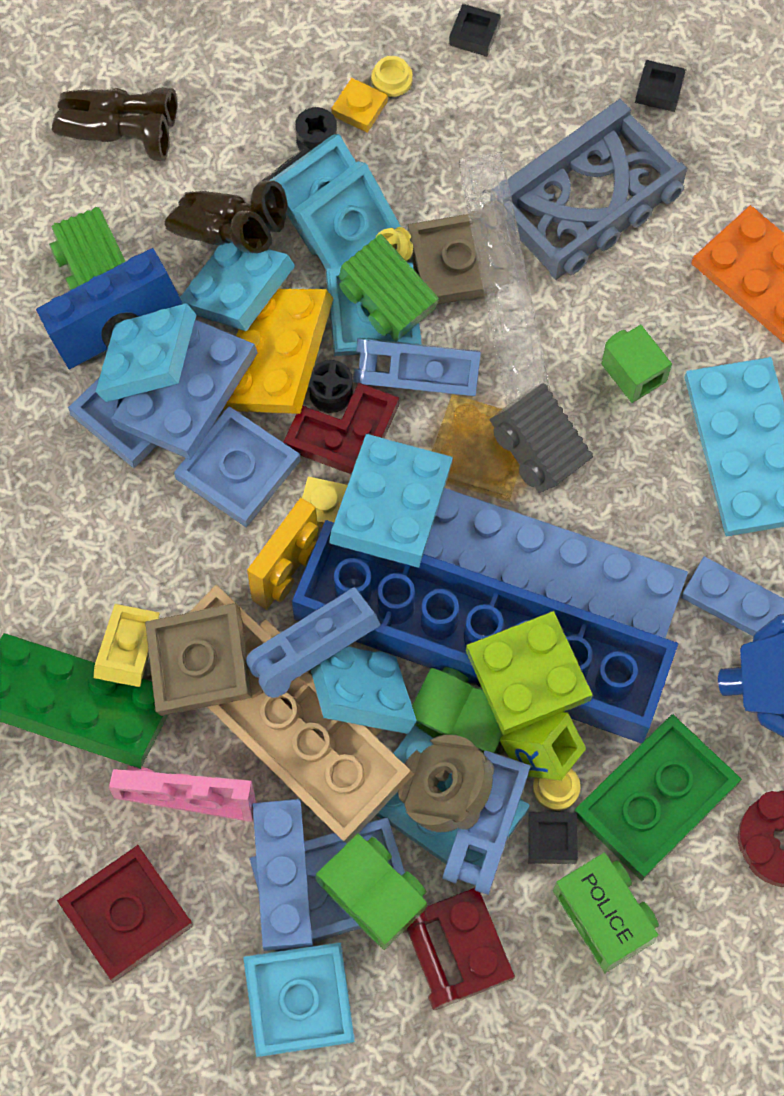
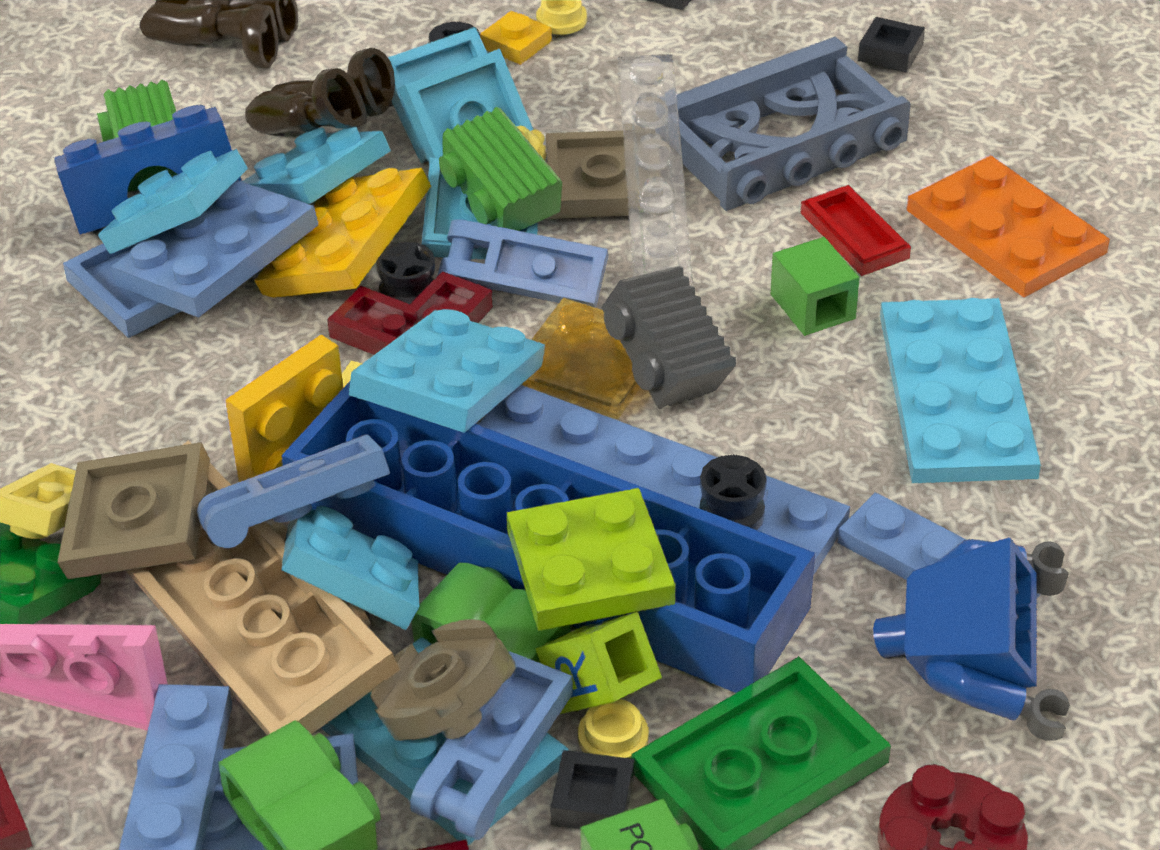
camera: 10 degrees right, 25 degrees down
(238, 466) = (253, 335): medium blue plate -> none
(614, 578) = (734, 490): none -> black wheel
(656, 292) = (855, 230): none -> red tile

